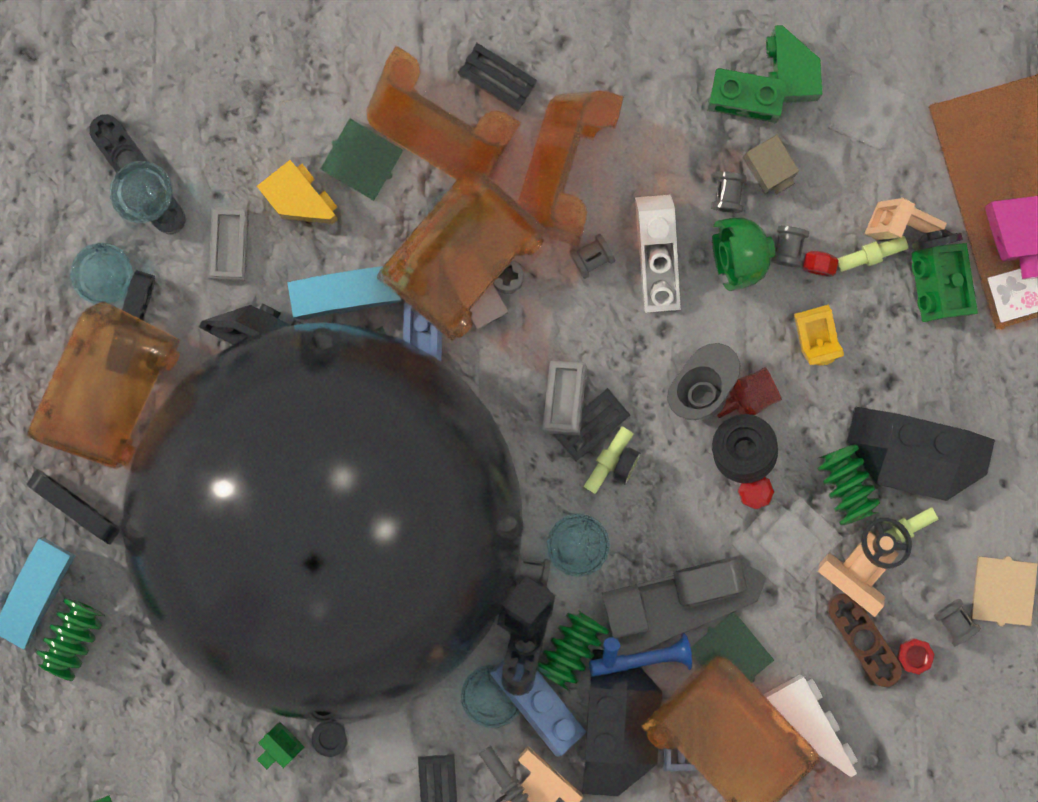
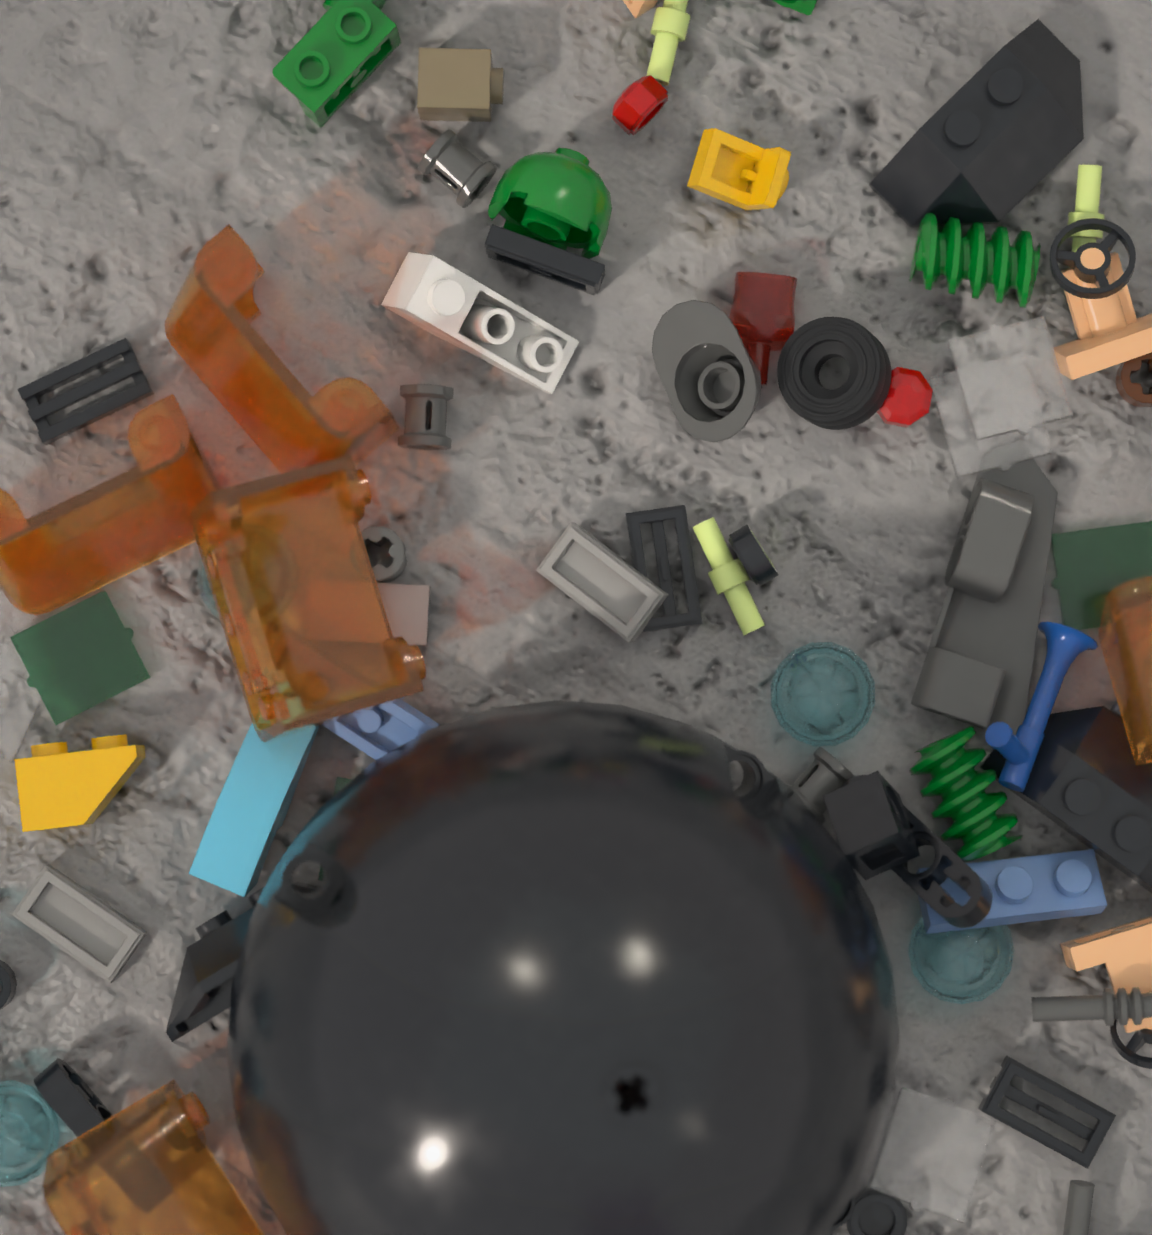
camera: 60 degrees left, 0 degrees up
(710, 266) = (544, 260): none -> black tile
(790, 246) = (588, 130): dark grey bush -> none

